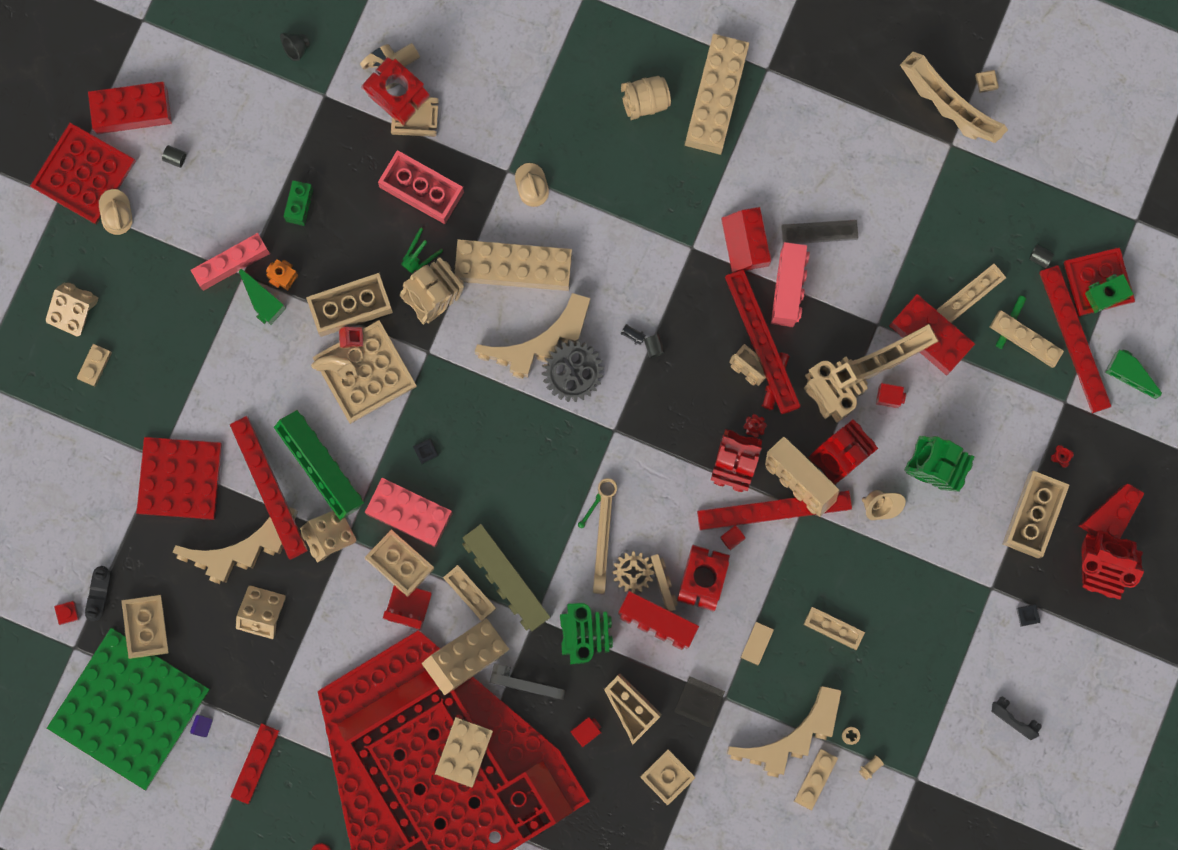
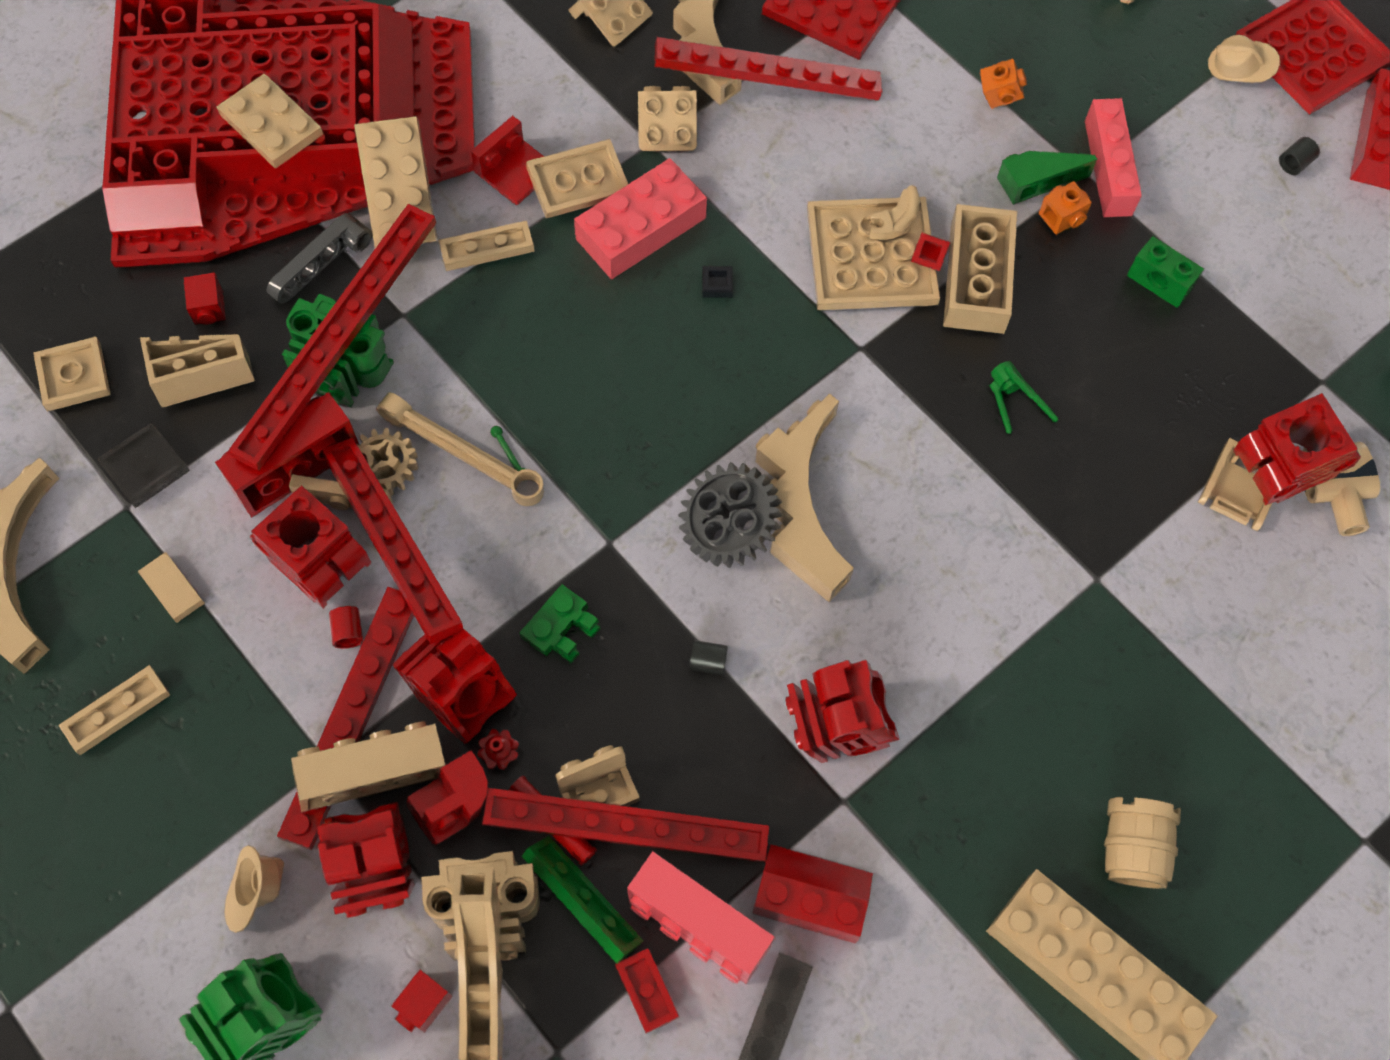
camera: 120 degrees right, 15 degrees down
(209, 351) = (1003, 83): none -> orange brick
(318, 464) = (767, 141): green brick -> none
(421, 187) = (1122, 435): coral brick -> none
(432, 290) = (951, 371): tan piece -> none
(506, 578) = (477, 296): olive brick -> none
(513, 265) = (938, 512): tan brick -> none
(531, 184) = (1059, 603): tan piece -> none
(584, 625) = (332, 338): none -> red plate
(633, 334) = (743, 636): black pin -> none
(656, 262) = (841, 712): none -> red piece
(673, 435) = (555, 619): none -> green plate
(683, 530) = (393, 541): none -> red plate
(795, 429) = (451, 799): none -> red brick
(806, 346) = (582, 899): none -> green plate
(831, 295) = (647, 991): none -> red plate

